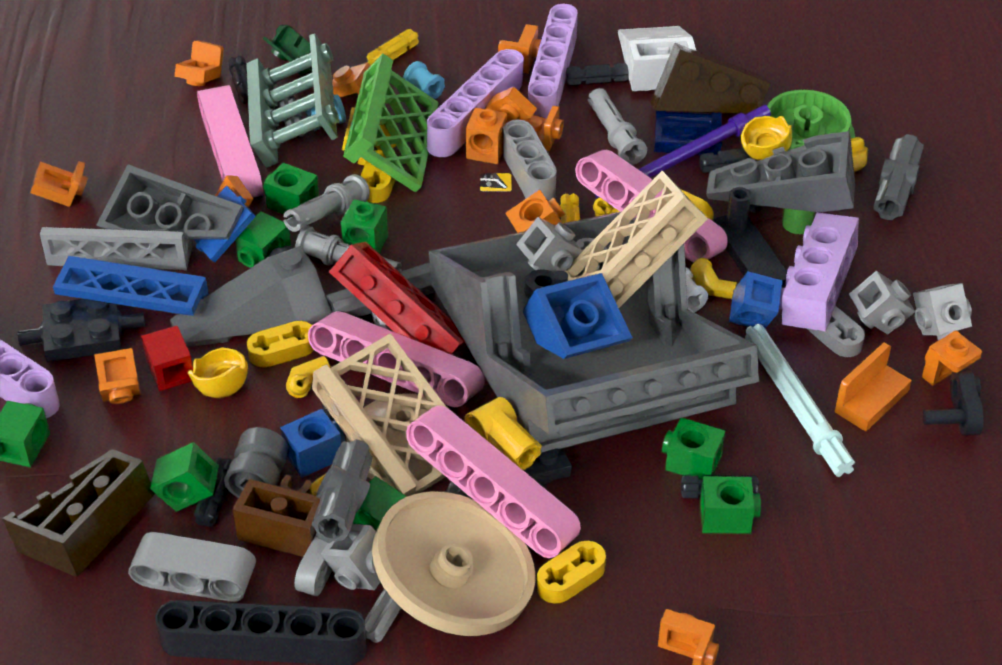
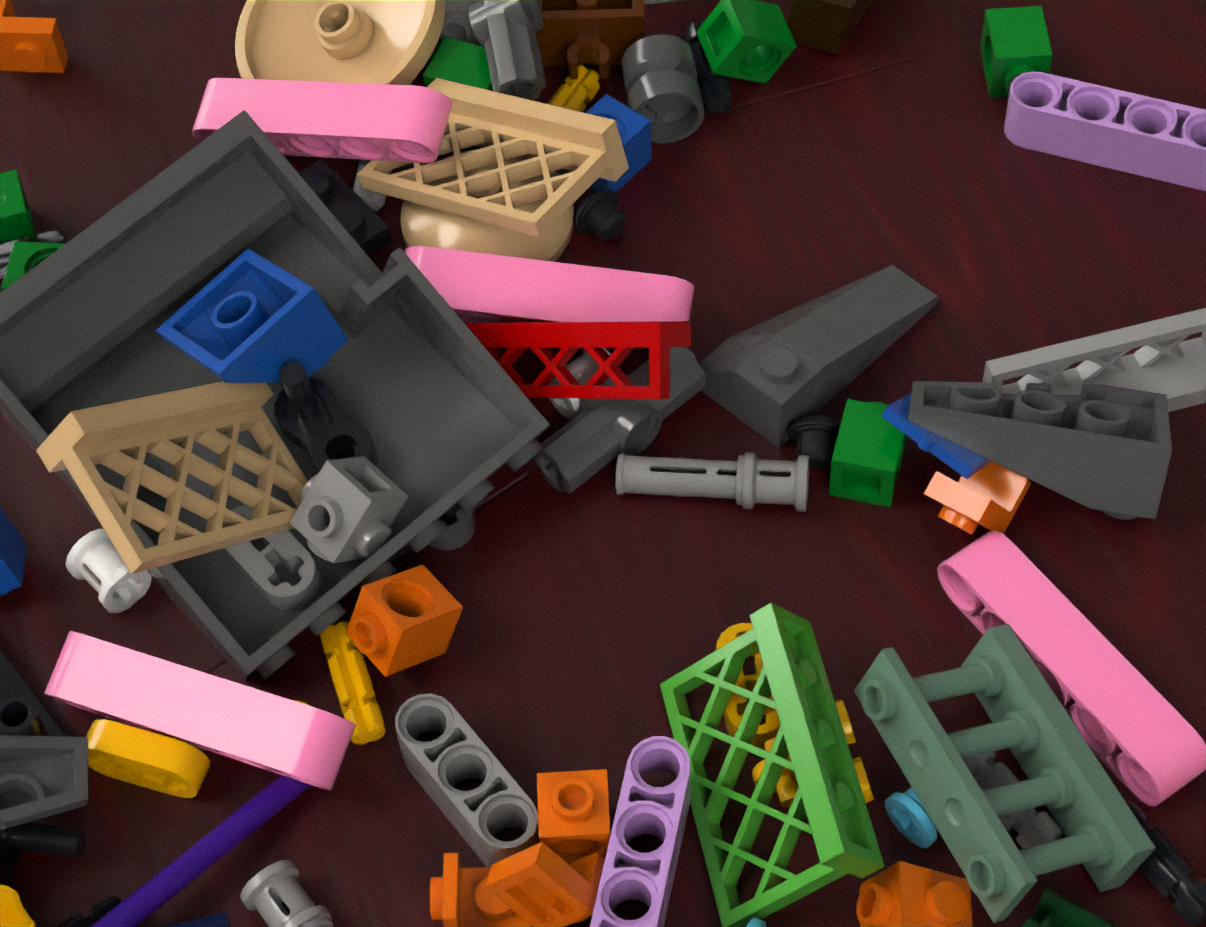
camera: 165 degrees right, 10 degrees up
(80, 329) = (1058, 238): black plate -> none
(117, 376) = (937, 164): orange bracket -> none
(131, 285) = (1024, 308): blue fence -> none
(167, 357) = (889, 211): red brick -> none
(219, 372) = (797, 201): yellow hair -> none
(280, 344) = (734, 294): yellow beam -> none
(289, 188) = (879, 553): green brick -> none
(301, 377) = (677, 247): yellow arm -> none
(334, 200) = (794, 569): light grey pin -> none
(365, 224) = (707, 522): green brick -> none
(495, 182) = (529, 754): sticker -> none
(499, 426) = (346, 189): yellow piece -> none
(574, 575) = (186, 92): yellow beam -> none
(706, 277) = (71, 610): yellow arm -> none

